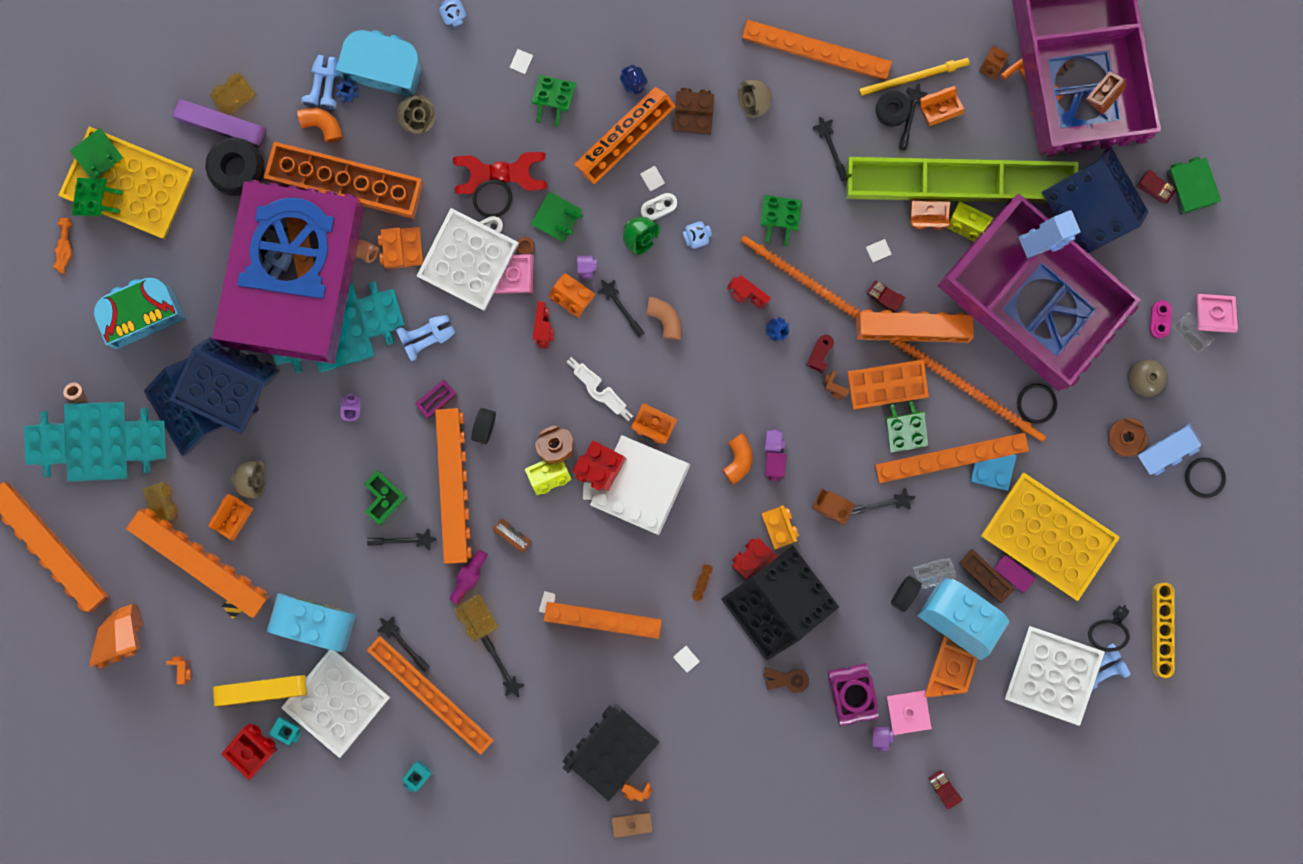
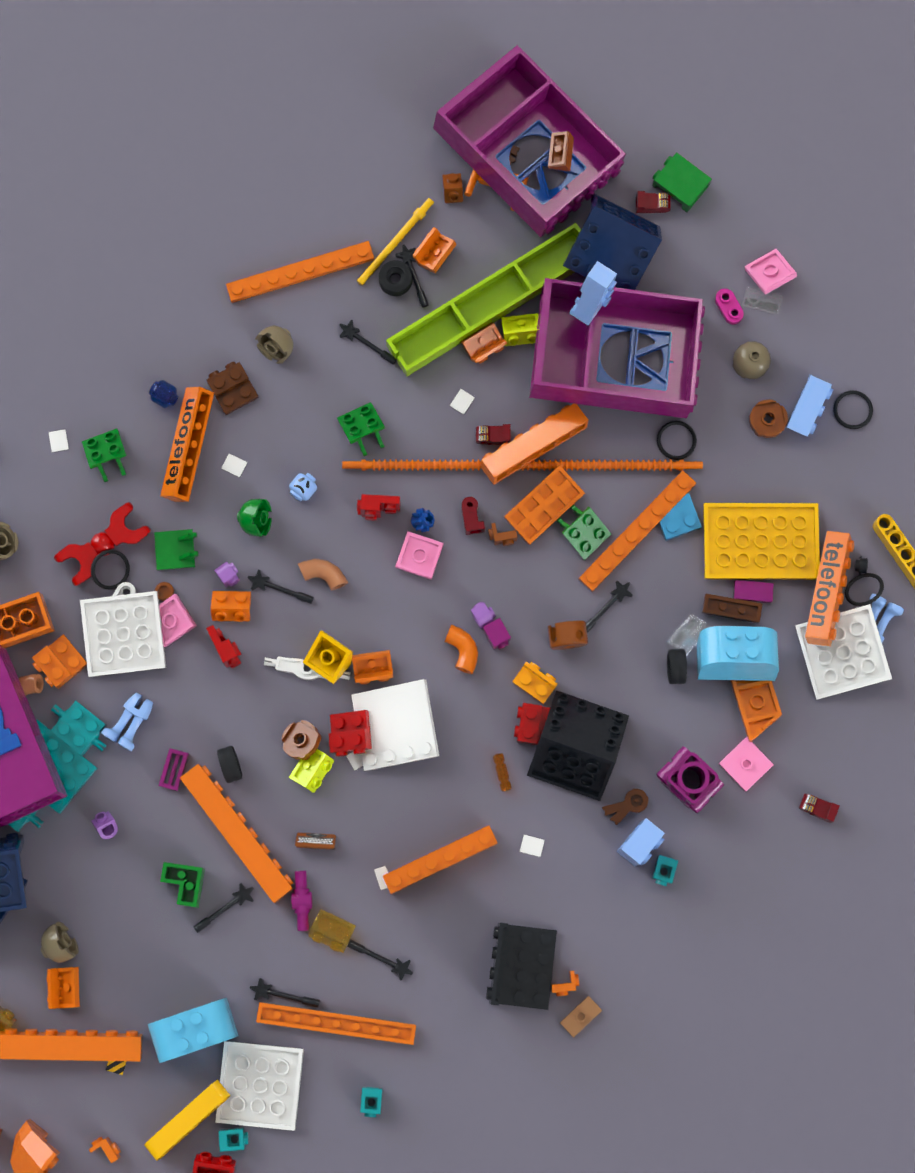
camera: 35 degrees left, 5 degrees down
(622, 392) = (328, 657): none -> yellow slope
(658, 206) = (254, 484): white plate -> none
(755, 357) = (419, 555): none -> bright pink plate
(776, 719) = (640, 842): none -> light blue brick
(789, 753) = (667, 863): none -> teal brick
(882, 738) = (739, 799): medium lavender plate -> none
(1079, 615) = (829, 588): none -> orange brick

